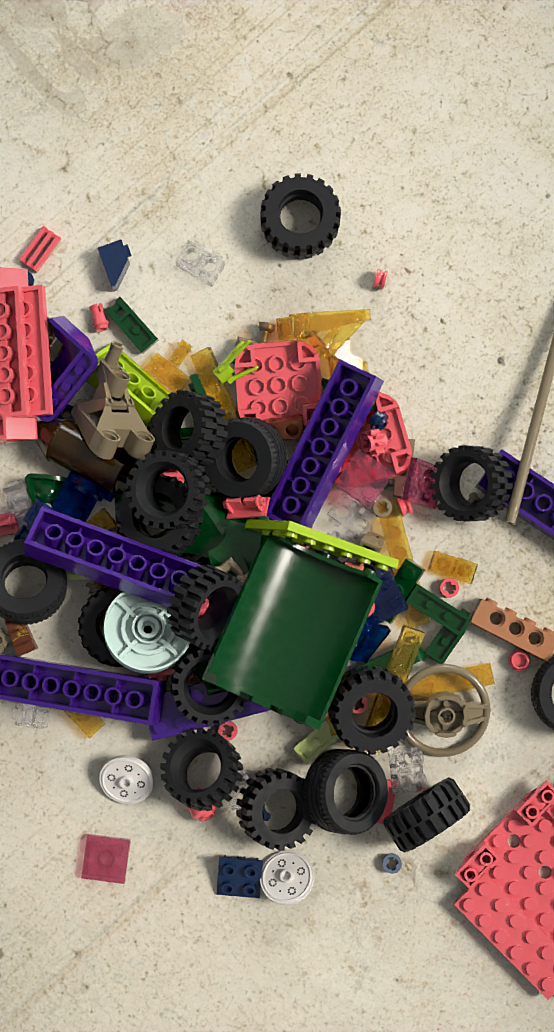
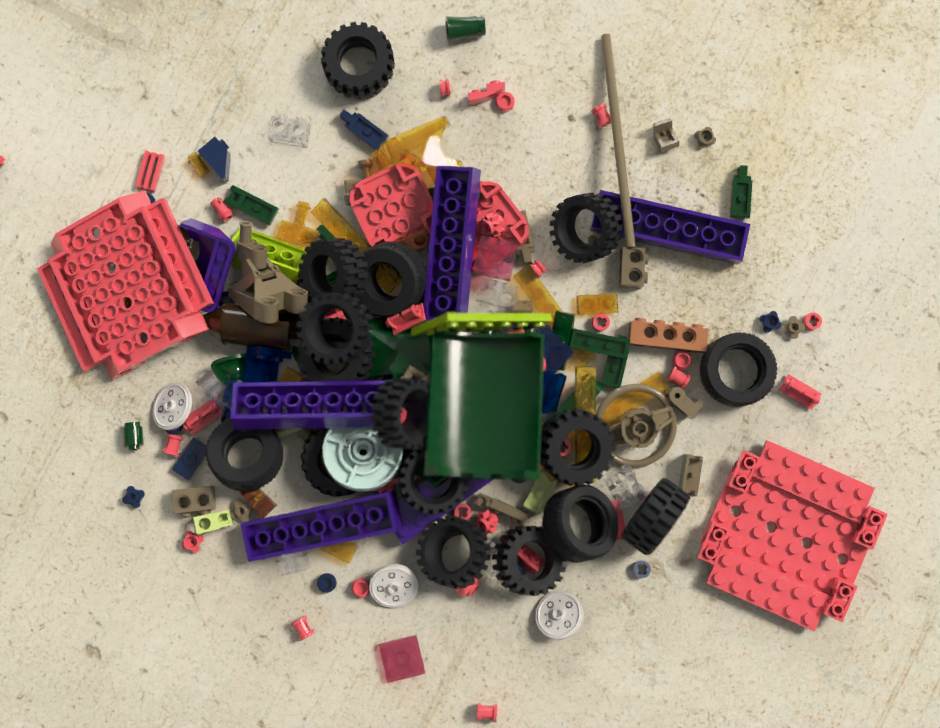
camera: 20 degrees left, 0 degrees up
(15, 787) = (302, 628): none -> coral bush
(58, 749) = (326, 582): none -> dark blue plate
(91, 768) = (361, 587): none -> coral plate
(92, 261) = (198, 164): none -> clear yellow pin
(172, 949) = (487, 712): none -> coral bush
(225, 371) = (345, 213): lime plant -> none
(239, 877) = (519, 630): dark blue hinge -> none
(249, 750) = (487, 521): none -> coral gear
(269, 741) = (501, 507): none -> dark tan hinge
(279, 290) = (364, 129): none -> dark blue hinge
(279, 809) = (531, 561): none -> coral hinge
(375, 509) = (524, 274): dark tan bush -> none
(378, 421) = (489, 205): dark blue plate -> none
(418, 484) = (541, 244): clear pink plate -> none
(425, 223) = (464, 27): none -> dark green plant
(430, 300) = (493, 89): none -> coral slope
(438, 317) = (505, 101): none -> coral tile
(481, 784) = (690, 473): none -> dark tan hinge
(499, 540) = (628, 267): none -> dark tan brick
(499, 701) = (682, 403): none -> dark tan leg
(508, 677) = (678, 377): none -> coral bush
(534, 370) = (602, 115): none -> coral bush

